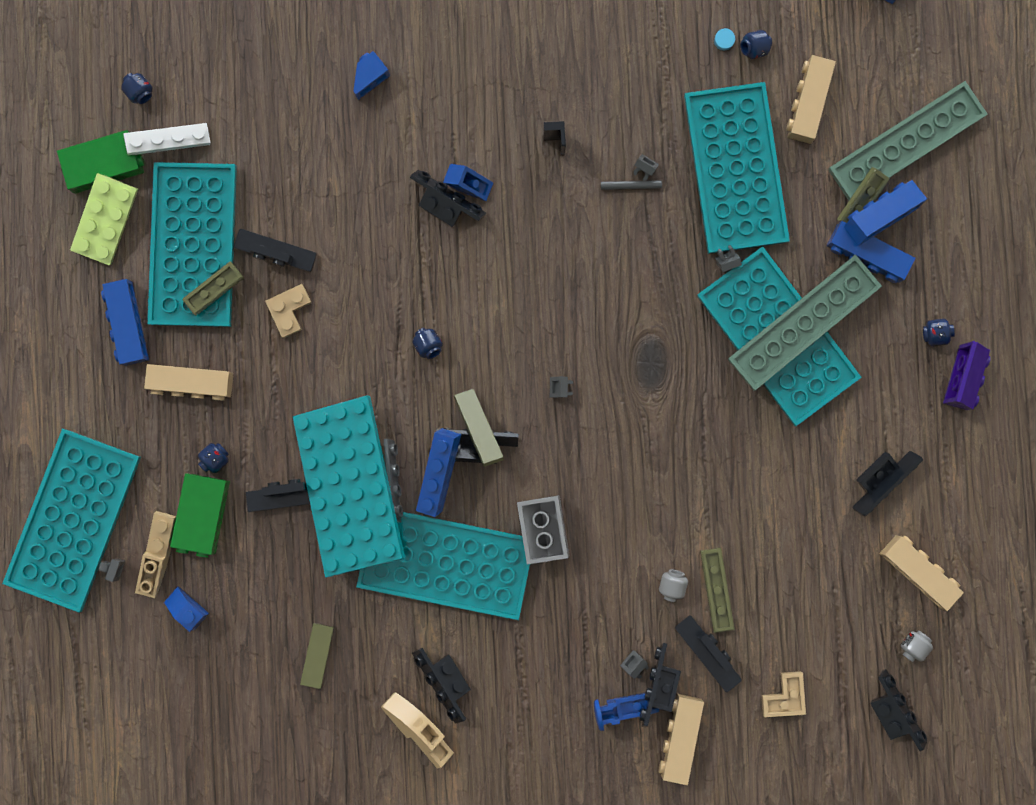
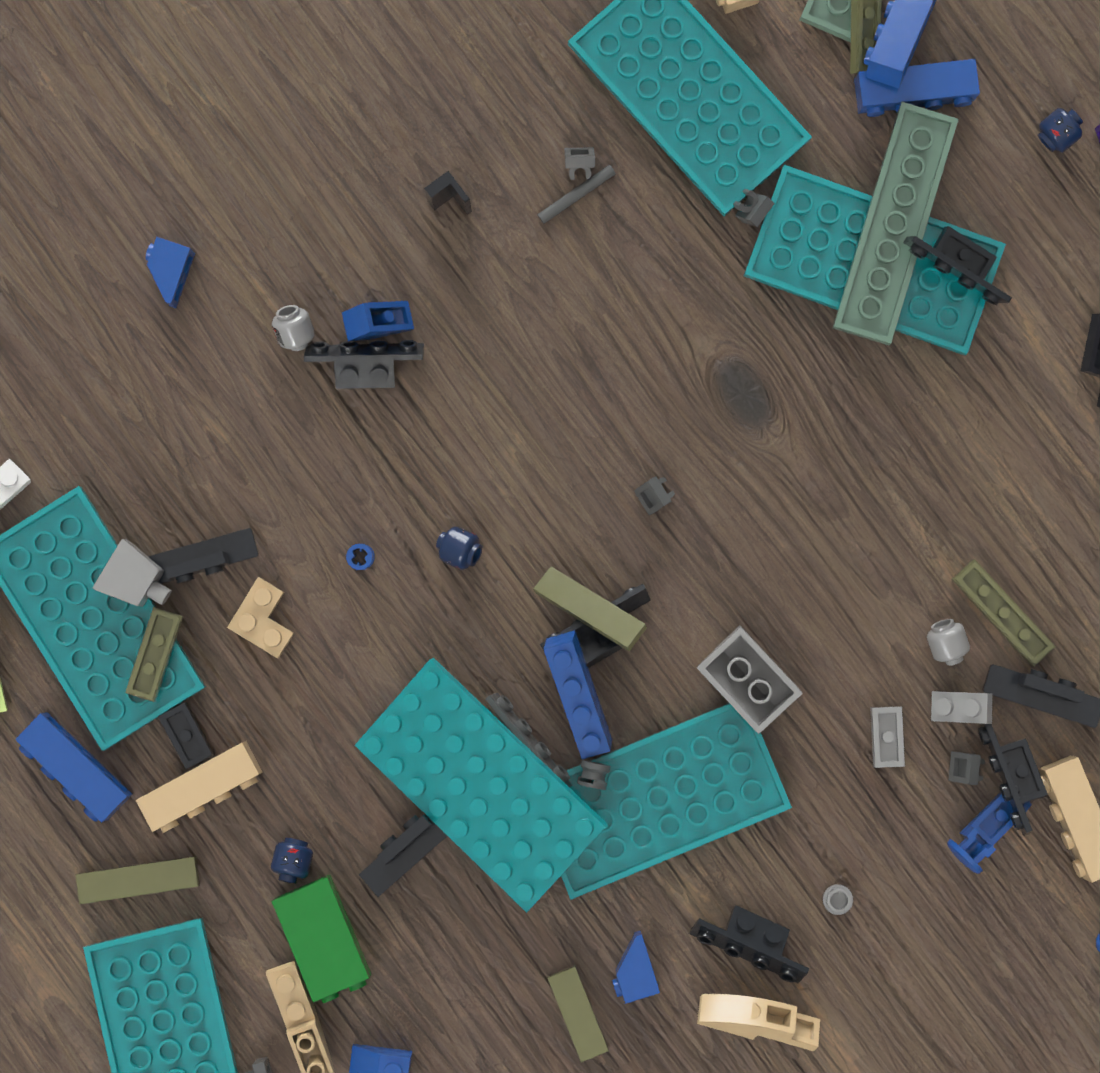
camera: 40 degrees left, 0 degrees up
(118, 411) = (137, 880): none -> olive tile
(200, 347) = (186, 735): none -> black plate
(229, 235) = (132, 577): none -> light grey torso
(365, 654) = (635, 972): none -> blue slope
(372, 315) = (368, 558): none -> blue bush
(416, 154) = (293, 328): none -> light grey head
(416, 524) = (593, 771): none -> dark grey wheel
(510, 690) = (837, 899): none -> light grey plate
(601, 616) = (887, 737): none -> light grey plate
(655, 628) = (961, 707): none -> light grey plate
(830, 369) = (962, 258): none -> black bracket

